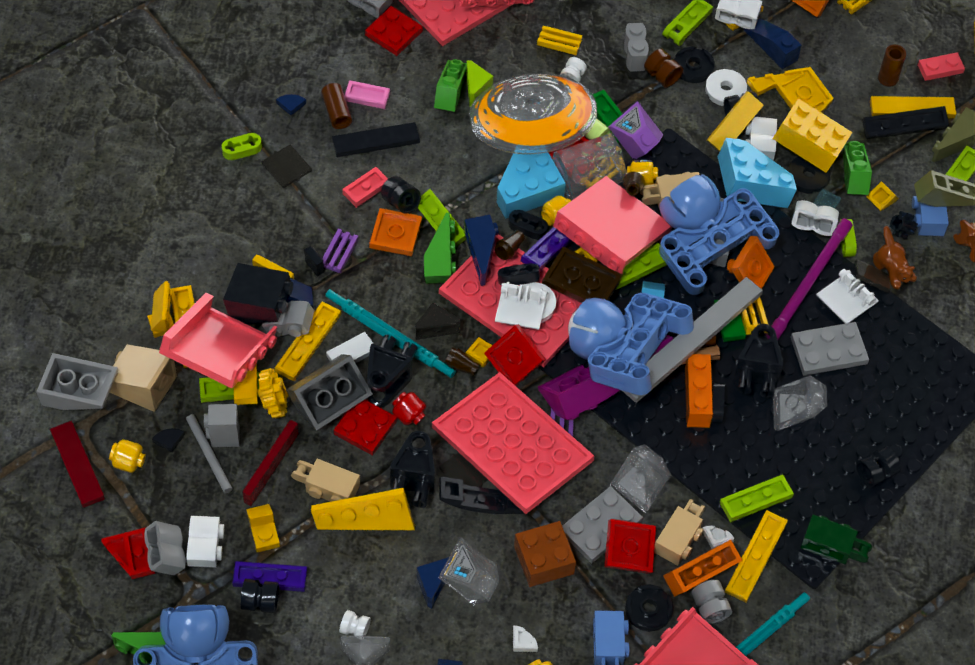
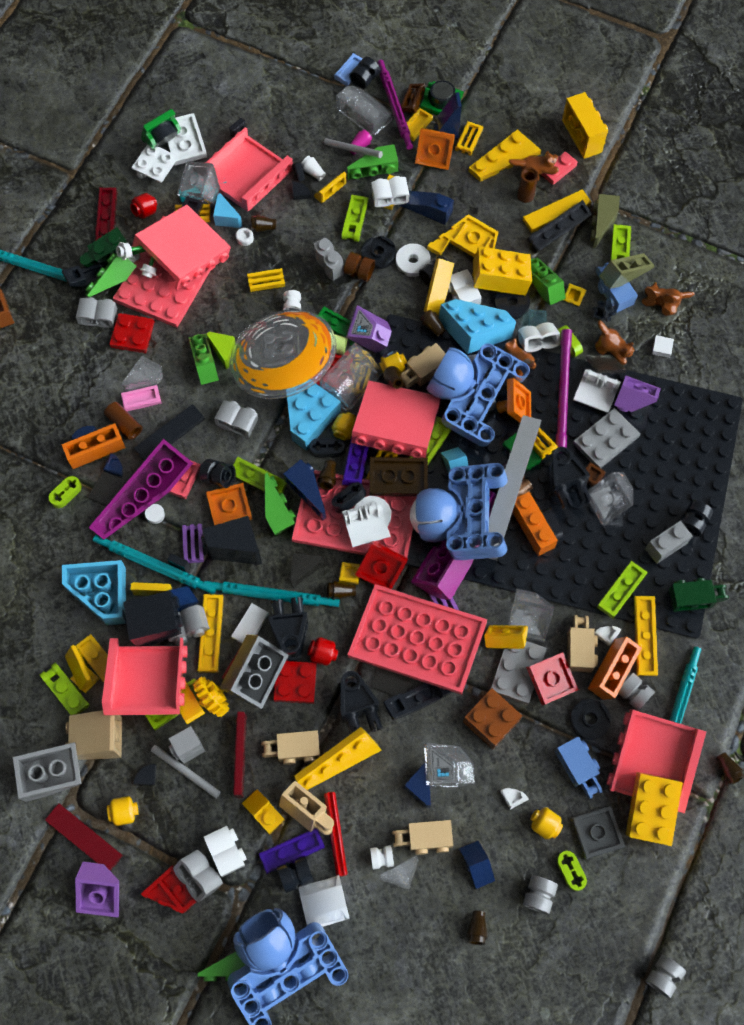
camera: 25 degrees left, 10 degrees up
(60, 514) = (96, 890): none -> medium lavender slope
(136, 322) = (65, 690): none -> lime plate
(222, 244) = (99, 588): none -> medium azure brick
(273, 637) = (324, 902): none -> white slope
(289, 251) = (154, 564): none -> teal axle
(293, 115) = (93, 446): none -> orange brick
(303, 144) = (113, 466): none -> dark blue tile
(305, 540) = (306, 809): none -> tan brick
(317, 206) = (155, 514): none -> white tile
(319, 175) = (145, 487): none -> magenta wedge
(321, 583) = (336, 836): none -> red axle
(377, 263) = (232, 542): none -> black slope
(380, 72) = (142, 375): none -> clear slope
(411, 628) = (426, 836): none -> tan brick
(451, 155) = (236, 418): none -> light grey brick
(605, 484) = (506, 636): none -> yellow slope
(708, 153) = (433, 323): none -> dark brown cone
(781, 219) = (513, 349): none -> dark orange animal
(791, 373) = (596, 474): none -> reddish brown tile
(834, 475) = (668, 542): none -> light grey brick
(884, 316) = (636, 395): none -> medium lavender slope
(888, 28) = (513, 147): none -> yellow wing
(916, 51) = (542, 164): none -> dark orange animal
(949, 289) = (662, 346): none -> white tile

